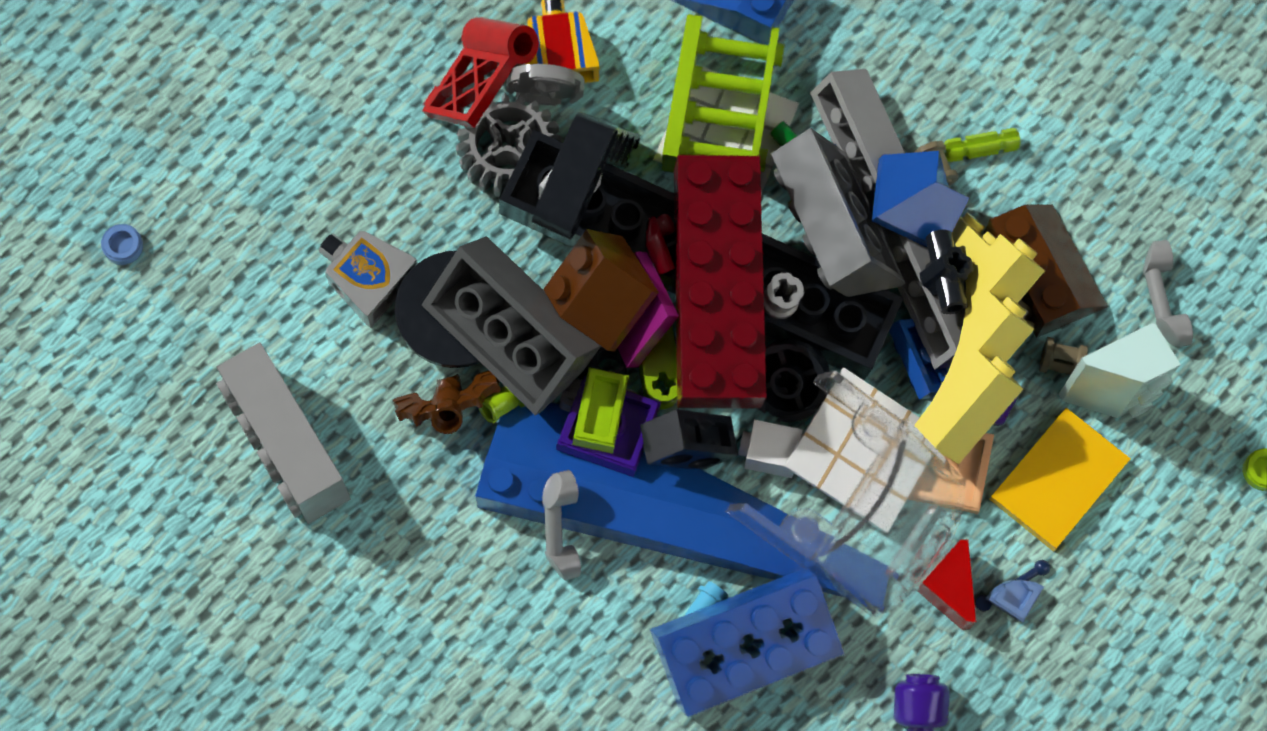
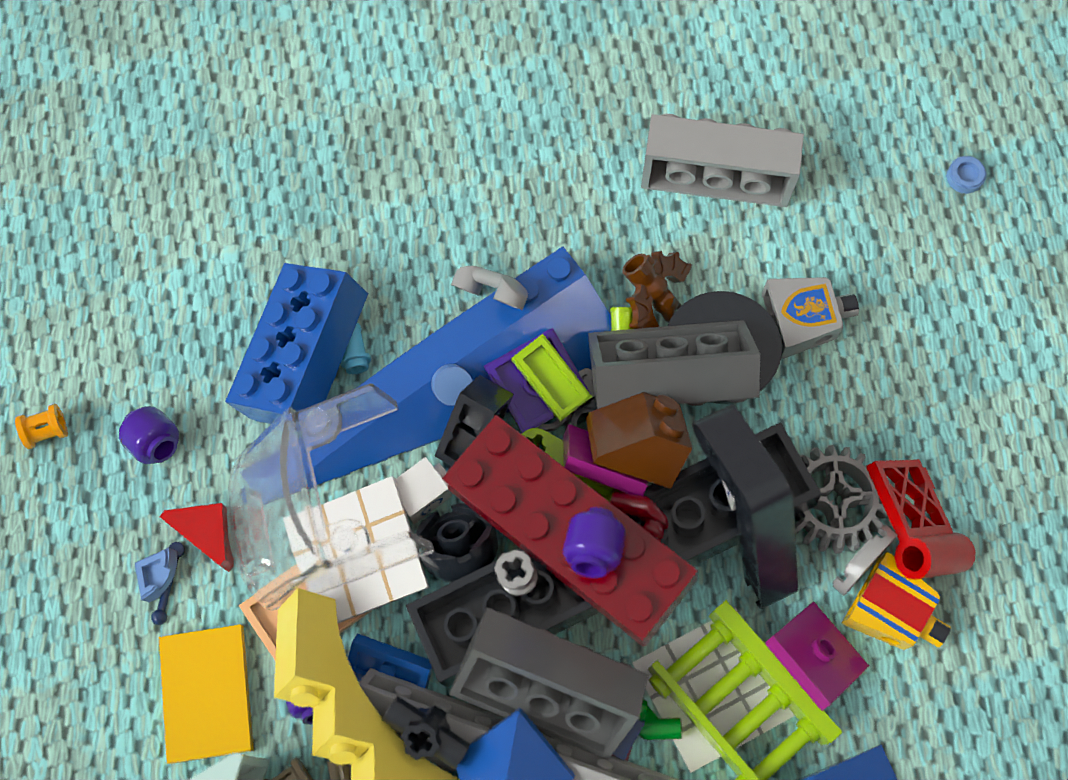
camera: 135 degrees right, 0 degrees up
(643, 71) = (817, 655): none -> magenta plate
(672, 485) = (449, 382): none -> medium blue tile
(725, 229) = (594, 542): none -> dark purple head

